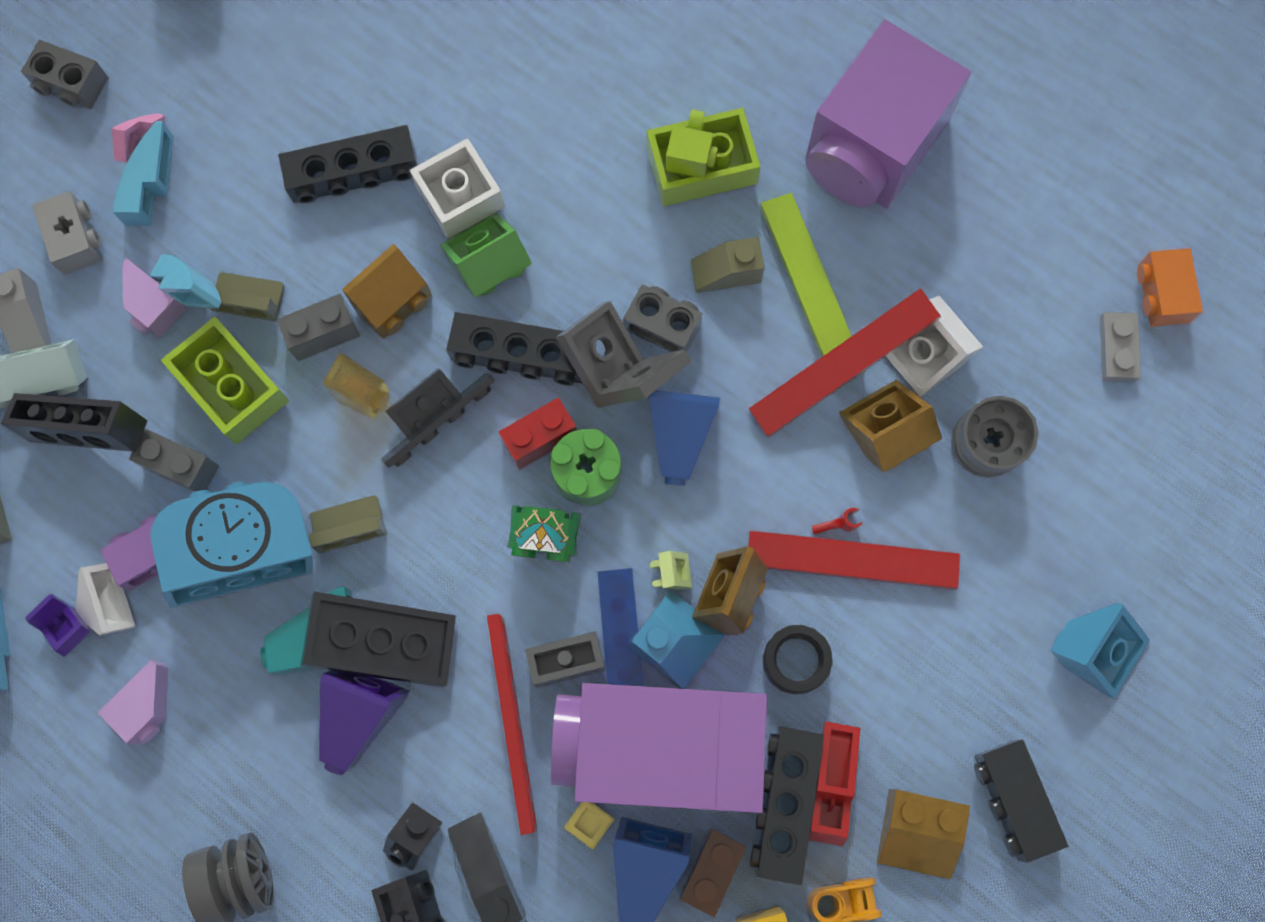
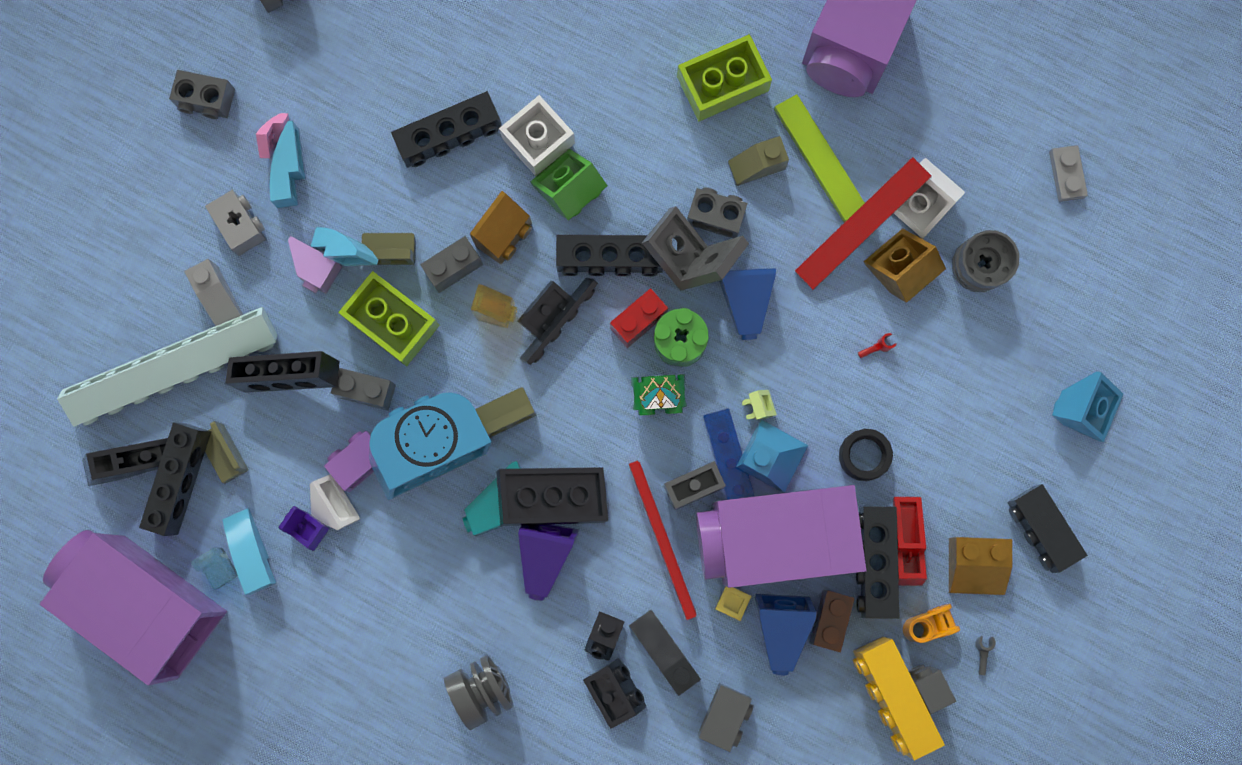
camera: 10 degrees left, 5 degrees up
(139, 705) = (379, 577): lavender slope -> none
(691, 148) = (717, 75): lime brick -> none
(731, 591) = (808, 412): pearl gold slope -> none
(857, 560) = (893, 372): red tile -> none
(1169, 287) = (1099, 121): orange brick -> none

